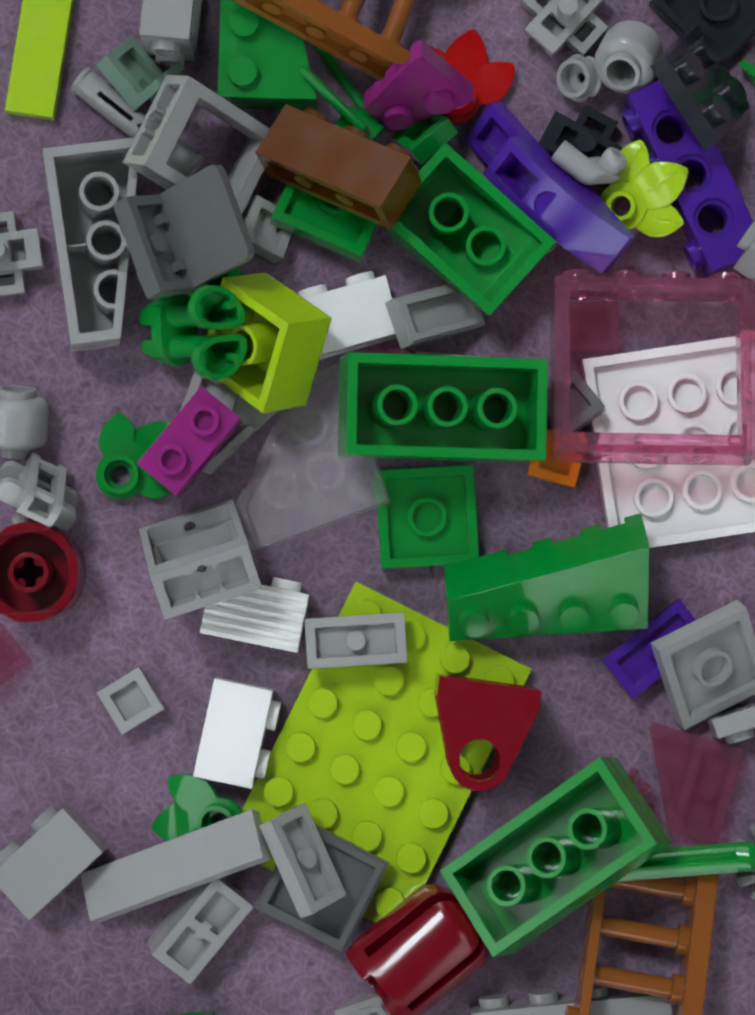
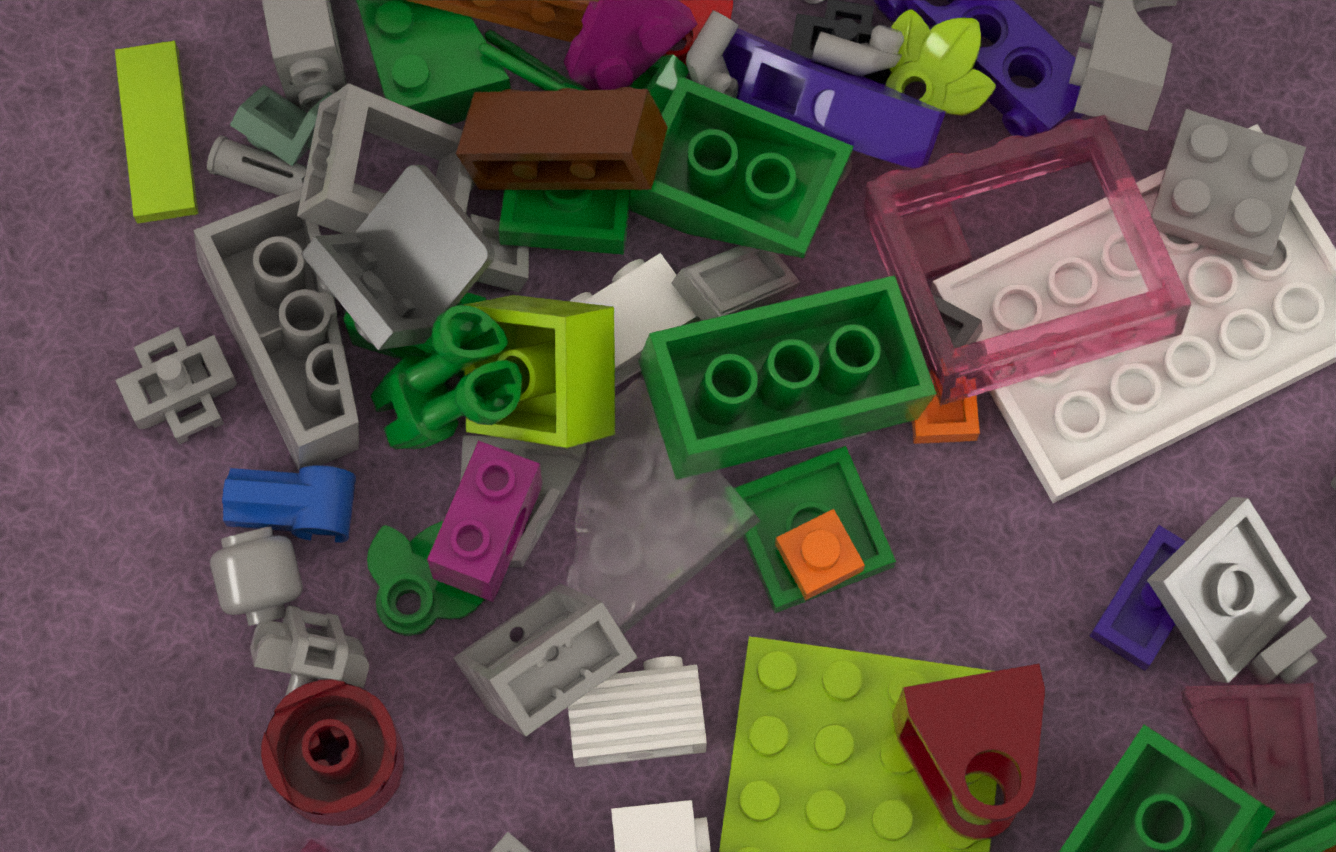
camera: 15 degrees left, 15 degrees down
(67, 377) = (303, 502): none -> blue piece
(355, 640) = (776, 701): light grey plate -> none
(424, 541) = (819, 554): none -> orange plate
(471, 131) = (706, 57): none -> light grey arm
(553, 587) = (1002, 555): green wedge -> none

